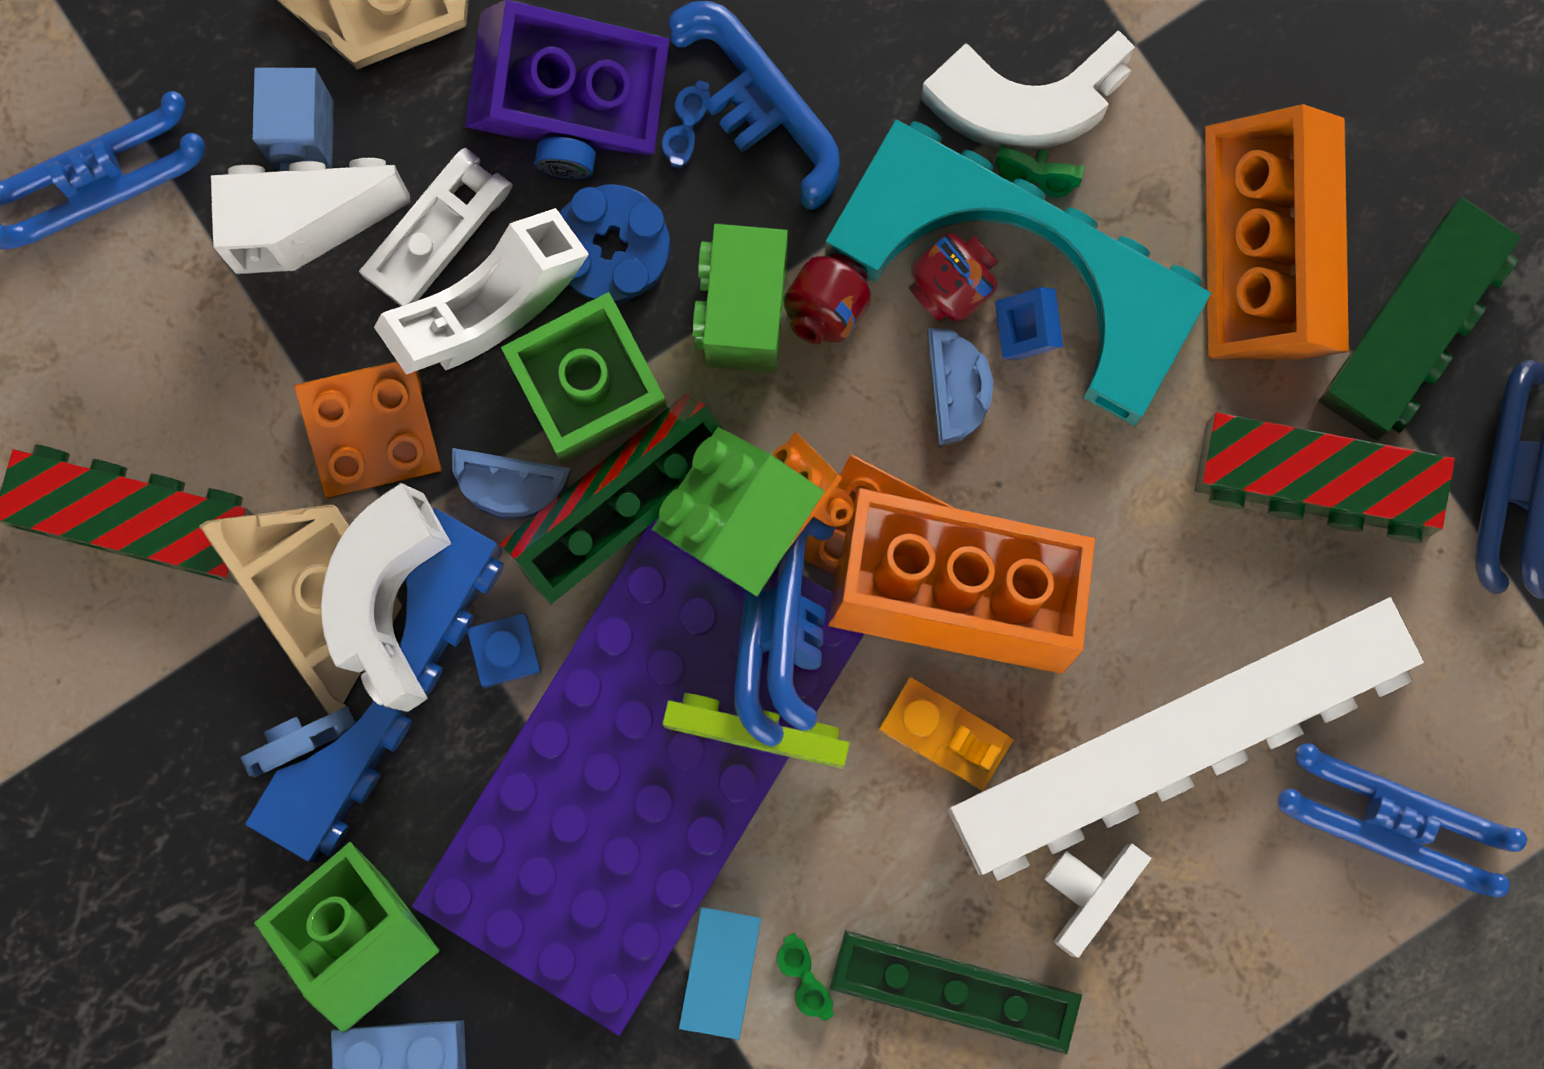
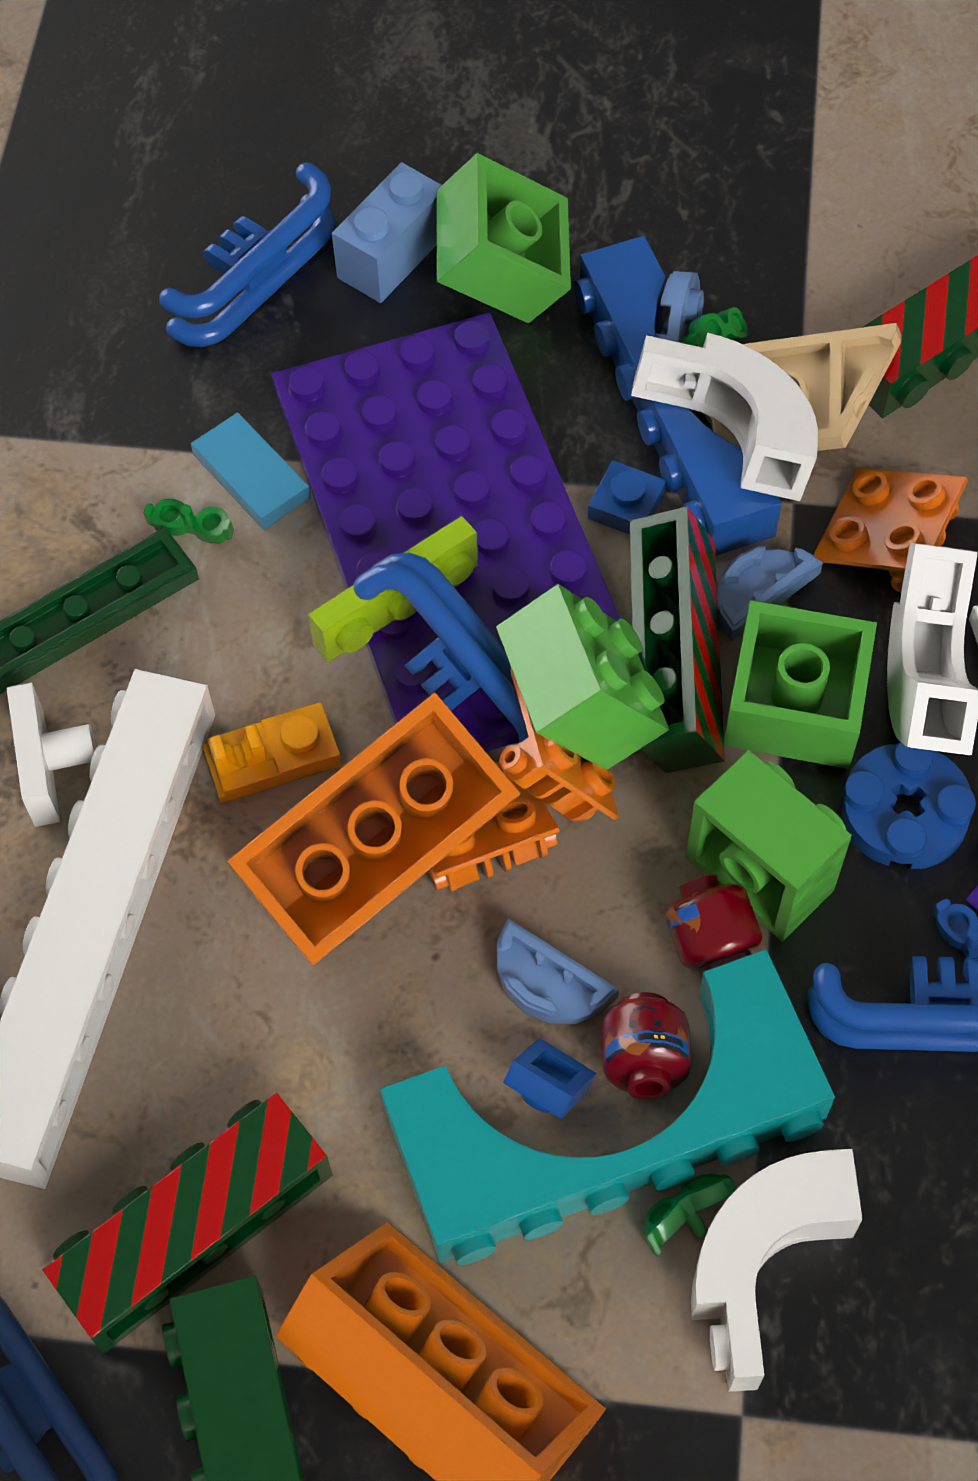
camera: 130 degrees right, 20 degrees down
(300, 696) = (726, 323): none -> green piece

